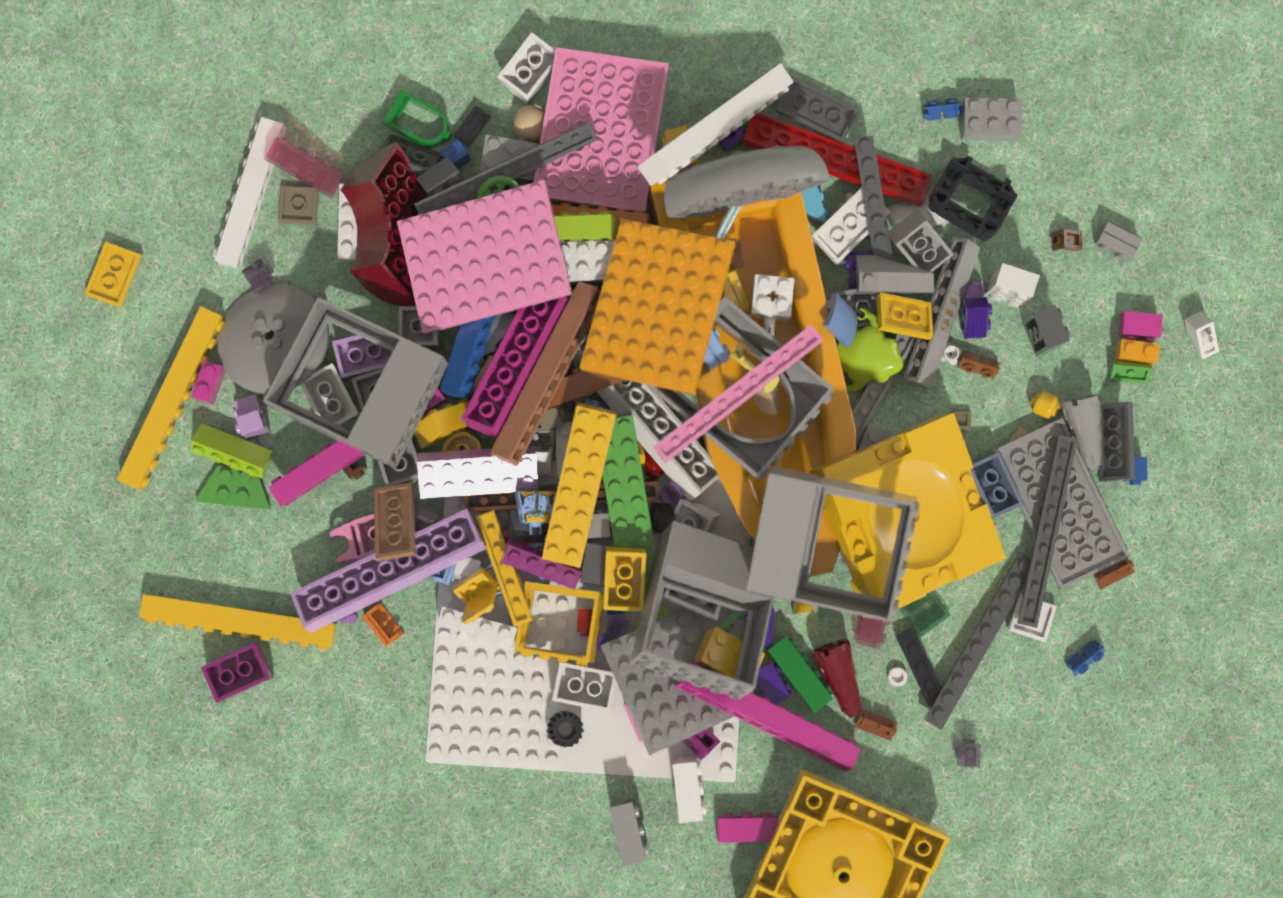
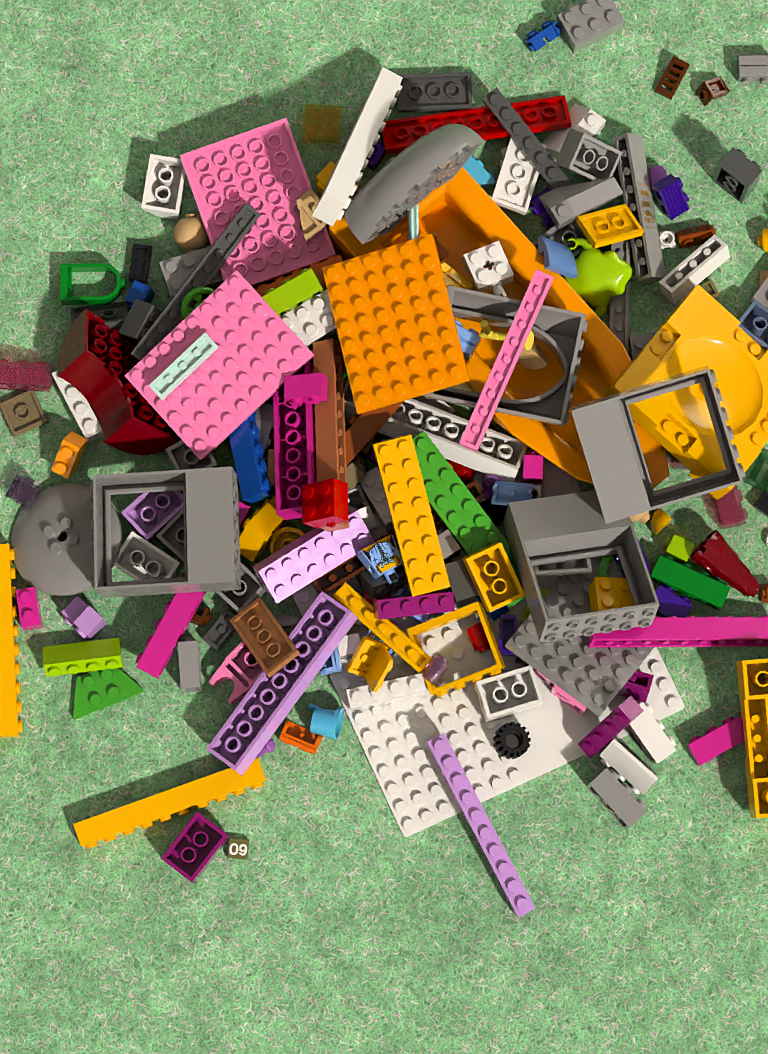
camera: 25 degrees left, 5 degrees down
(276, 692) = (238, 848): none -> olive tile
(315, 265) = (69, 454): none -> light orange brick
(319, 509) = (190, 665): none -> light grey window
(363, 492) = (220, 631): none -> dark grey plate
(412, 623) = (326, 721): none -> medium azure hat
(450, 241) = (183, 366): none -> light aqua plate
(495, 789) = (480, 825): none -> lavender brick
(505, 435) = (325, 503): none -> red brick
(530, 631) = (435, 669): none -> brick
(547, 321) = (305, 388): none -> dark pink brick
(641, 153) = (306, 207): none -> tan wing
(655, 768) = (610, 727): none -> magenta brick
(655, 808) = (628, 766): none -> white slope
(683, 511) = (511, 492): none -> light blue hinge
(701, 85) = (322, 123): none -> clear yellow plate
(715, 497) = (533, 467): none -> dark pink brick
(807, 637) = (679, 548): none -> lime brick
(960, 394) = (694, 269): none -> white brick
(963, 169) = (607, 77): black plate -> none
(1012, 285) = (686, 152): white brick -> none
(1050, 200) = (681, 65): none -> reddish brown slope

